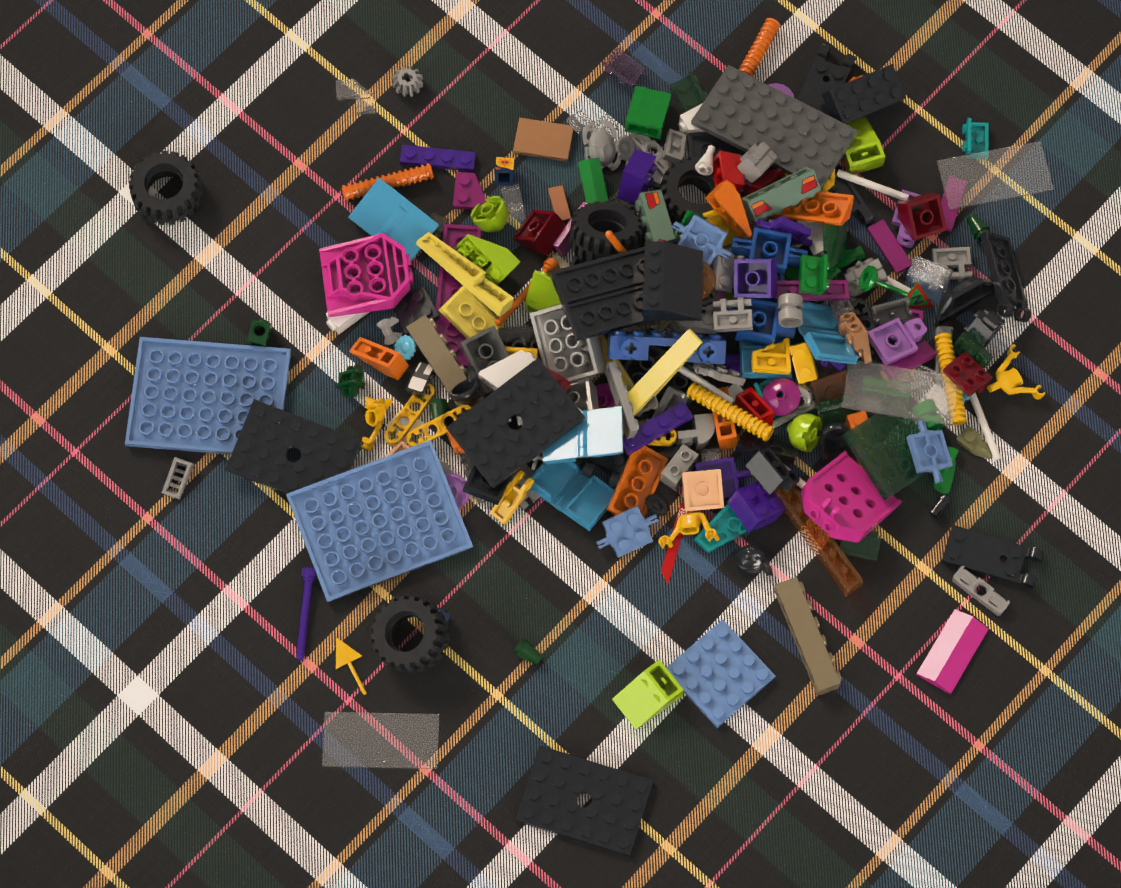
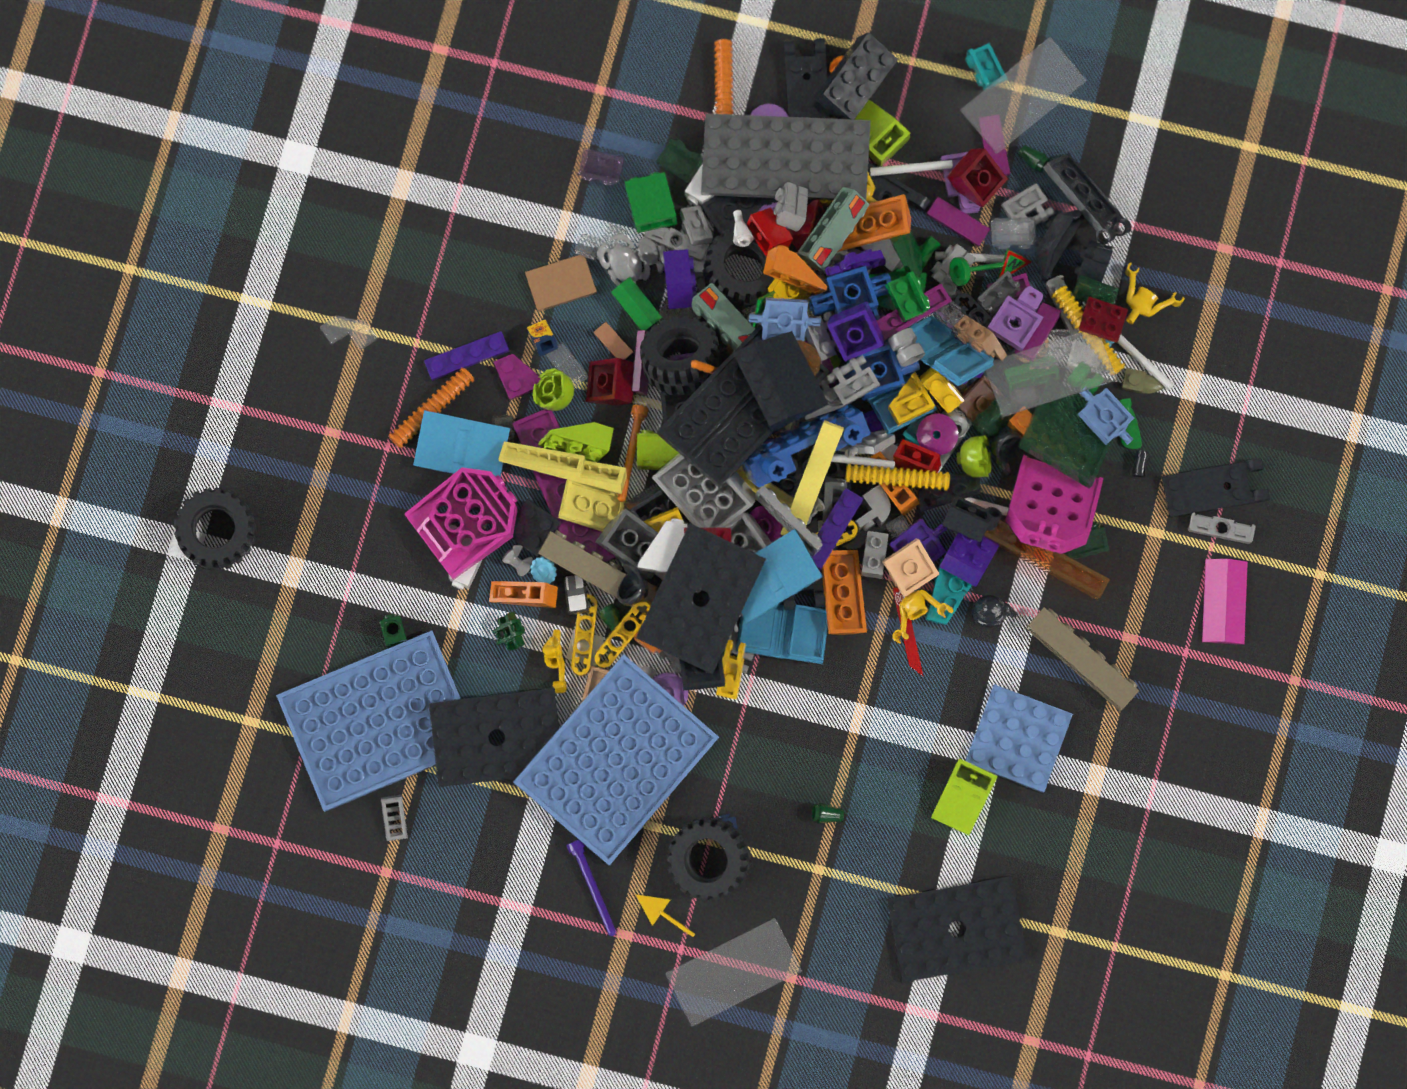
camera: 30 degrees left, 10 degrees up
(401, 78) = (400, 286): light grey gear -> none
(627, 531) = (858, 645): medium blue plate -> none
(657, 504) = (872, 602): black piece -> none

